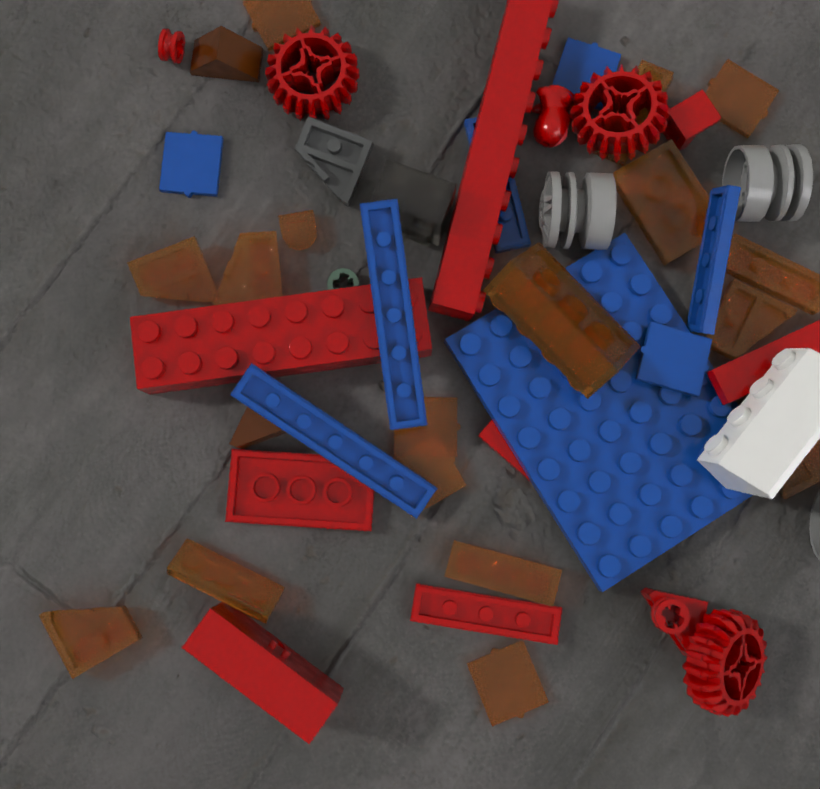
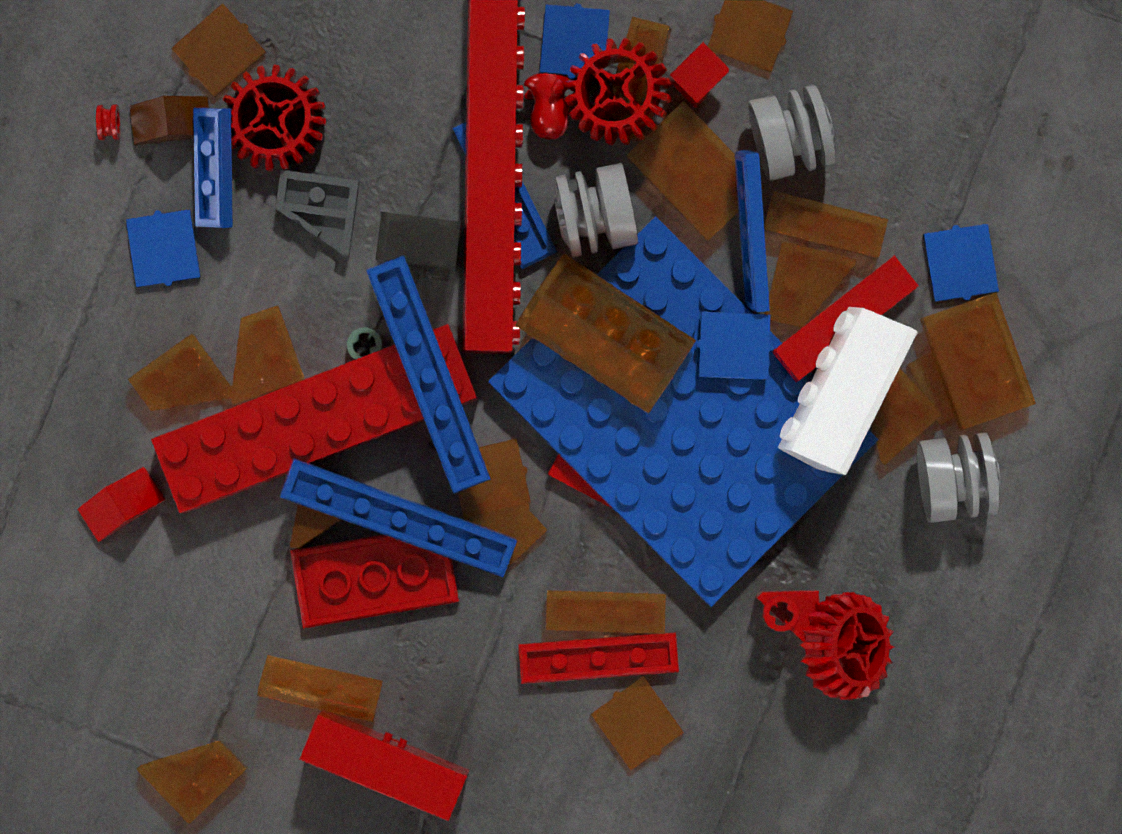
camera: 10 degrees left, 5 degrees up
(94, 370) = (121, 503): none -> red slope
(249, 100) = (213, 167): none -> blue tile
(298, 229) = (300, 295): clear orange tile -> none

